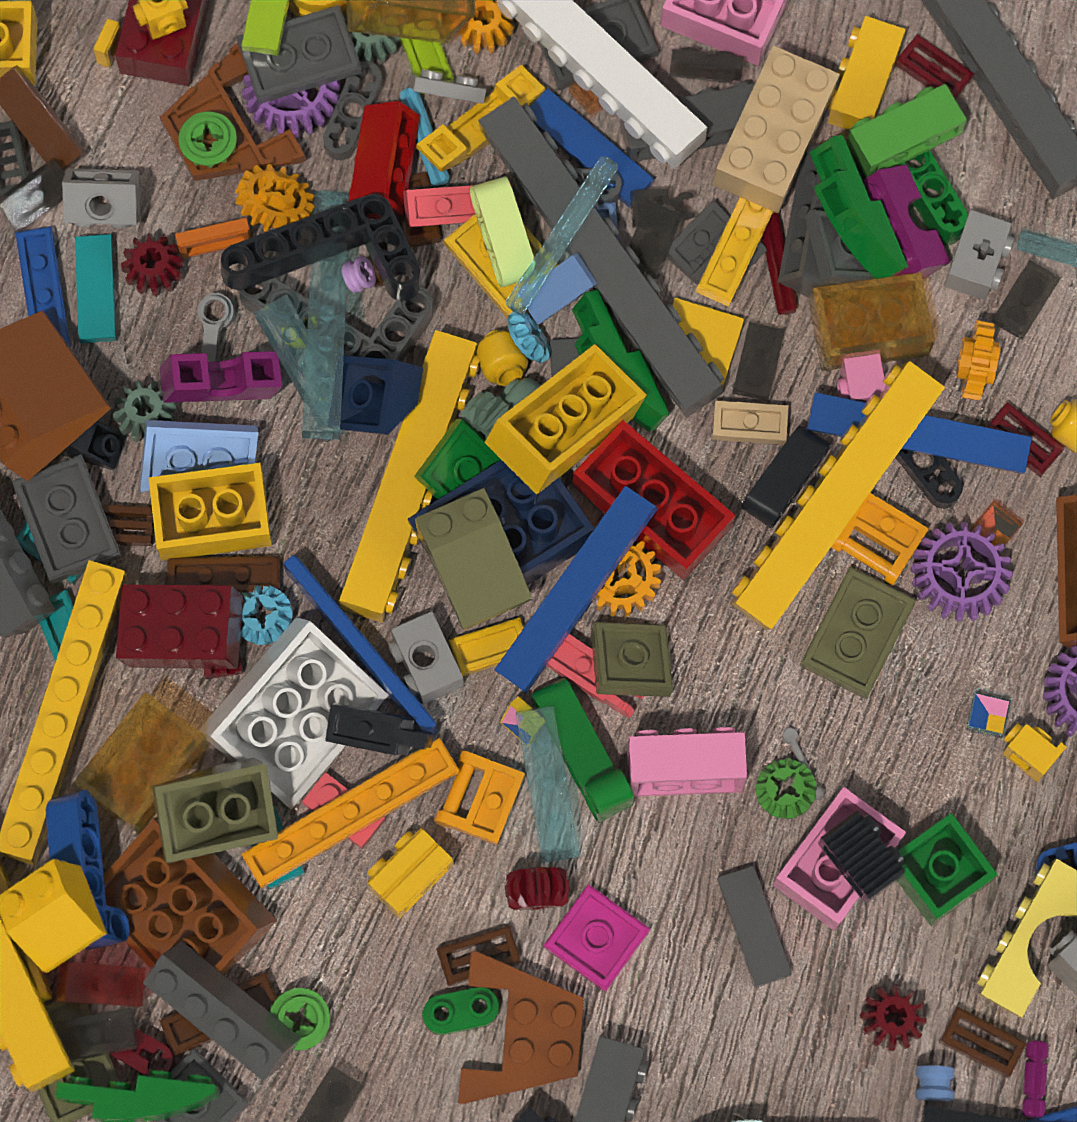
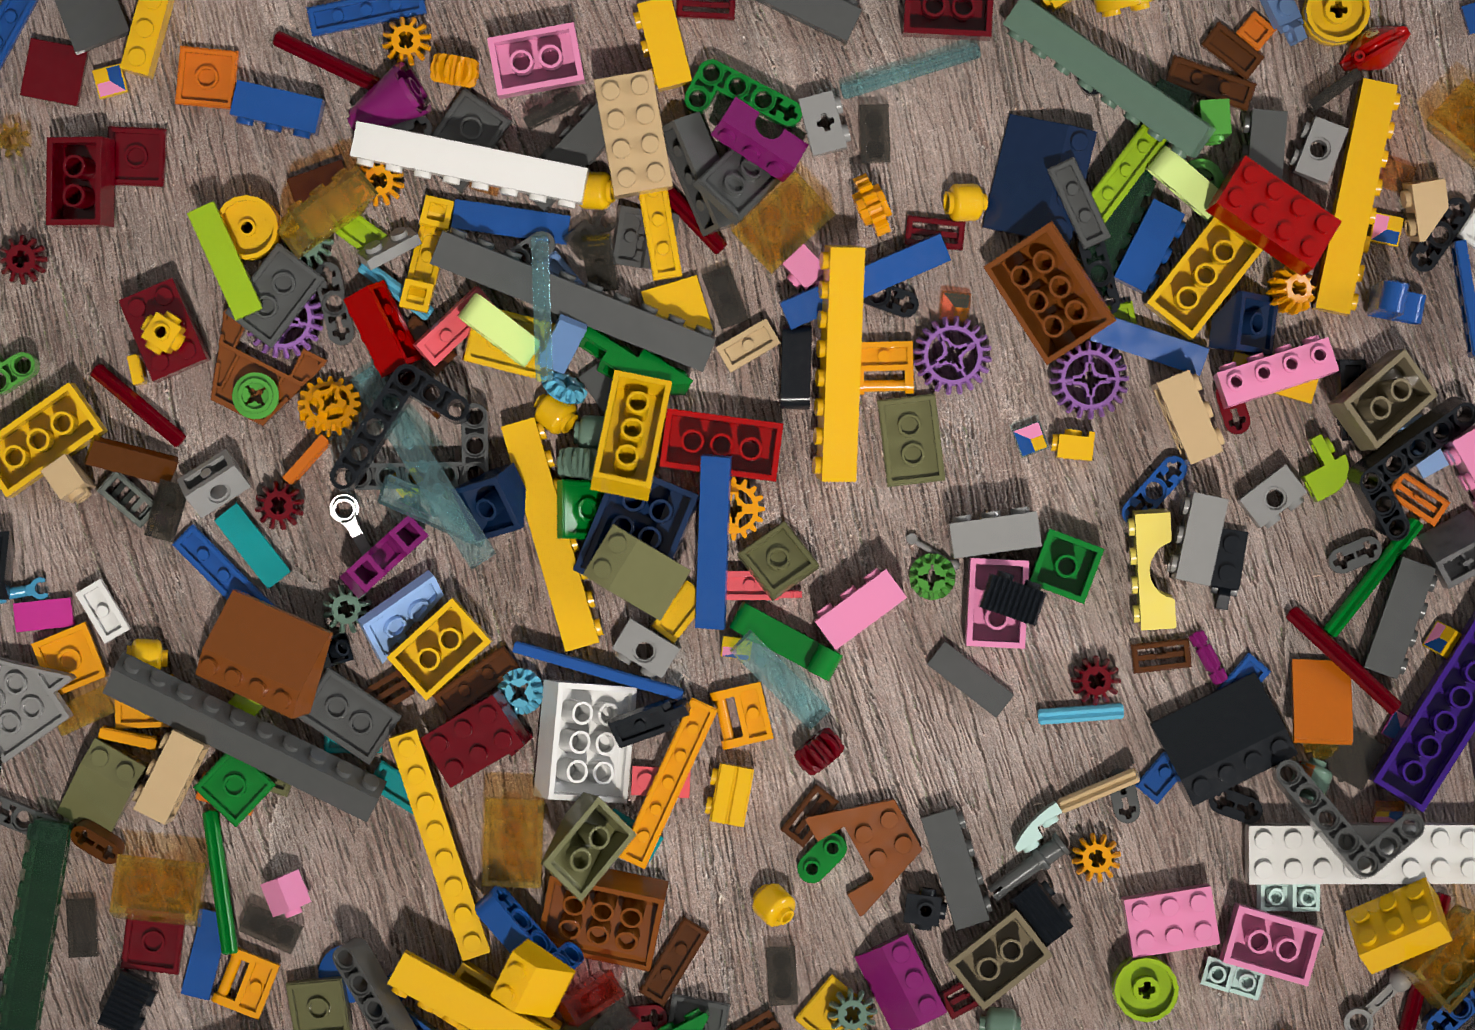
camera: 30 degrees left, 15 degrees up
(84, 79) = (138, 405): none -> dark red axle
(222, 1010) = (676, 963): dark grey brick -> none
(314, 1009) = (735, 940): bright green gear -> none
(358, 274) = (424, 423): lavender bush -> none
(372, 1023) = (773, 904): none -> yellow head
(596, 938) = (876, 754): dark pink tile -> none
(697, 171) = (598, 191): none -> yellow head
(852, 1045) = (1080, 713): none -> medium azure axle
(856, 219) = (733, 166): green slope -> none
(886, 780) = (993, 533): none -> light grey brick
(906, 130) = (719, 75): bright green brick -> none
(934, 1083) = (1147, 703): medium blue wheel -> none

